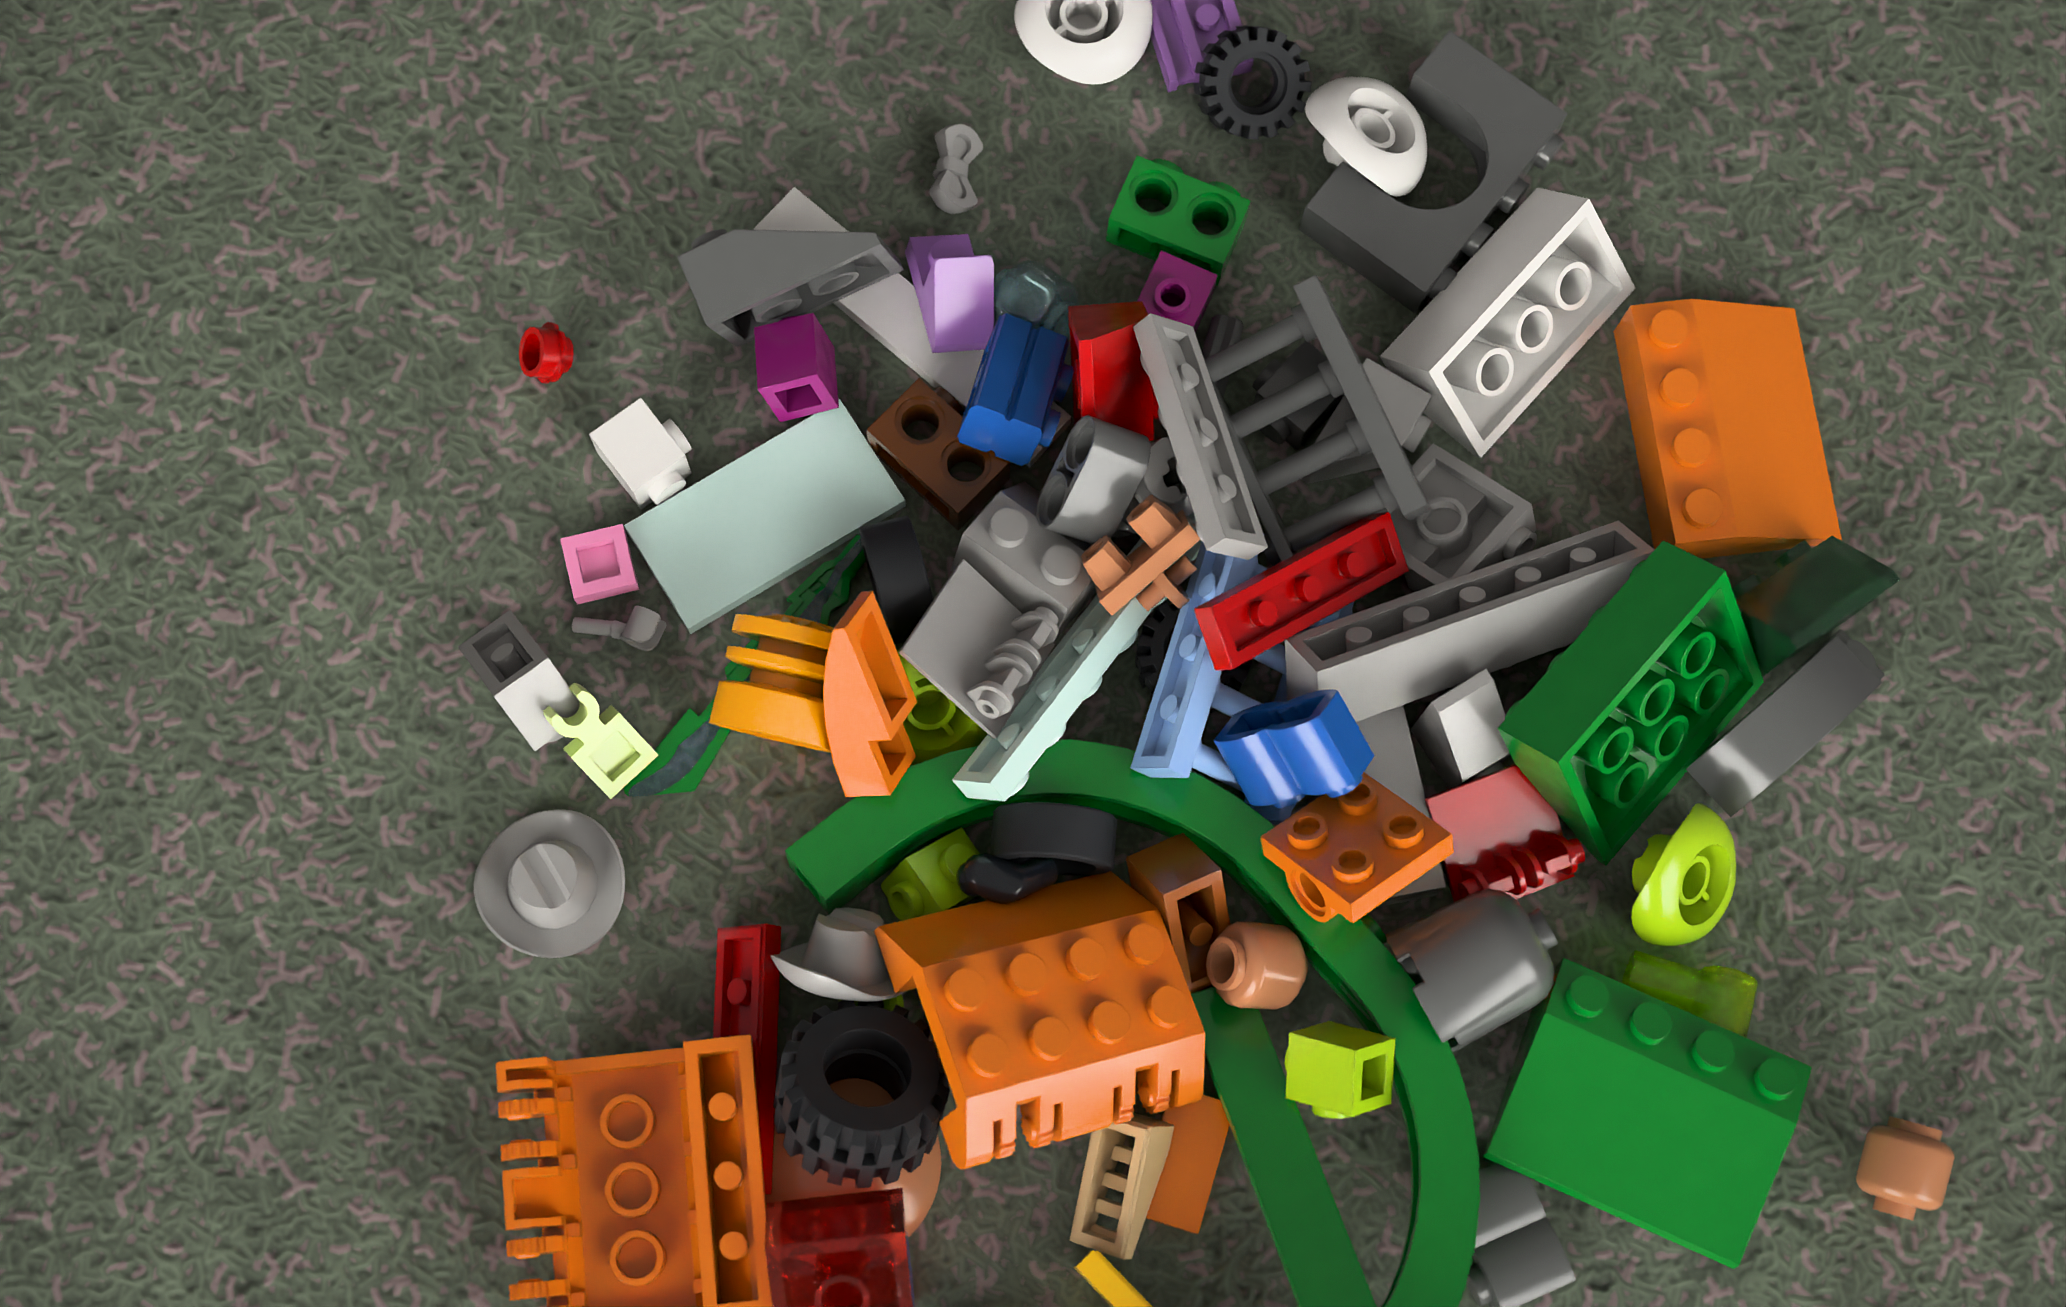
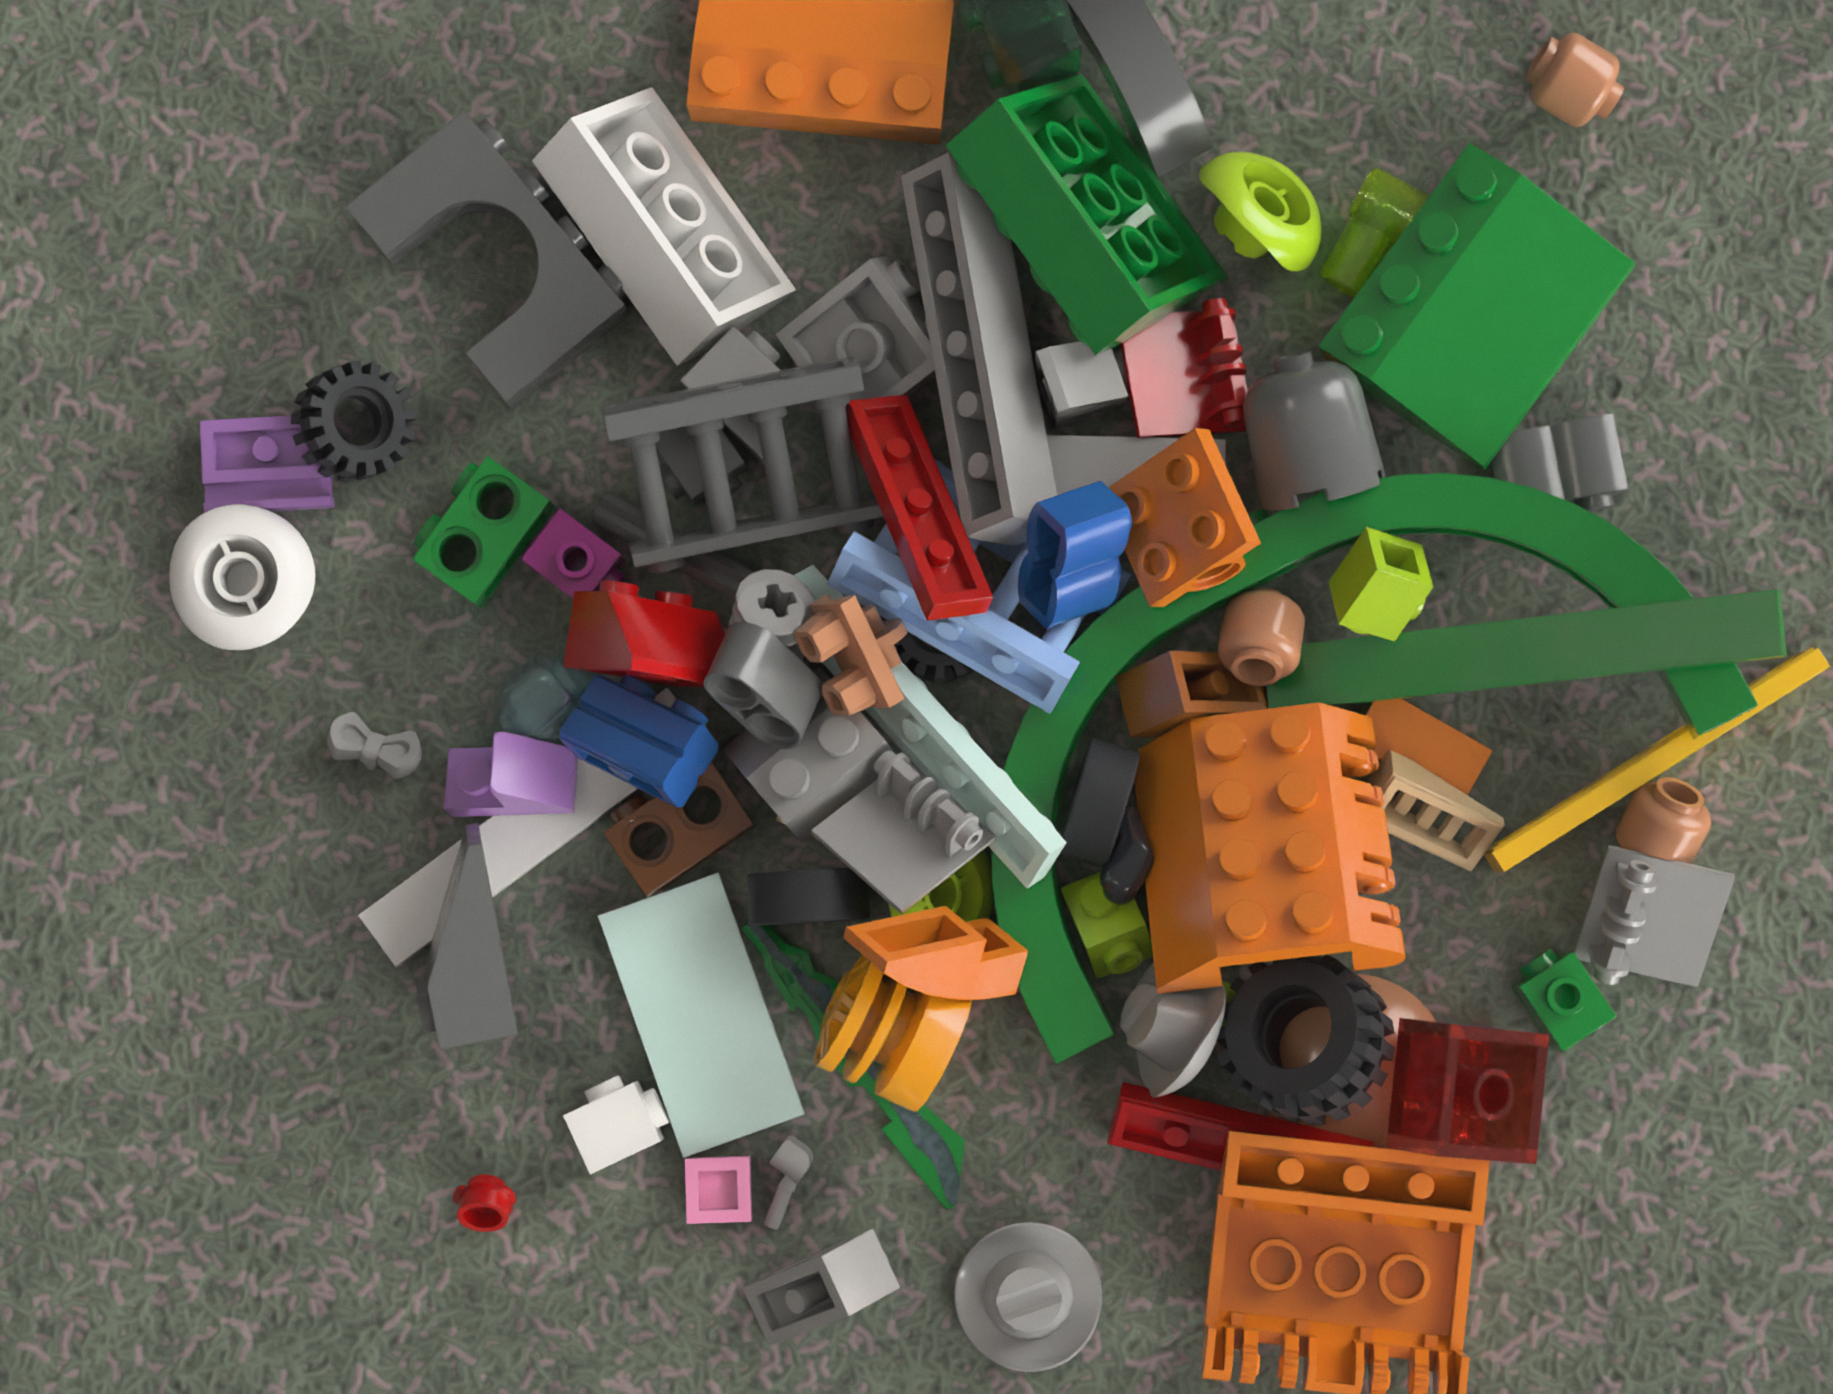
camera: 65 degrees left, 10 degrees up
(603, 743) = (905, 1220): yellowish green plate -> none
(796, 367) = (559, 952): magenta brick -> none
(1199, 438) = (747, 572): light grey plate -> none
(1370, 131) = (434, 314): white hat -> none

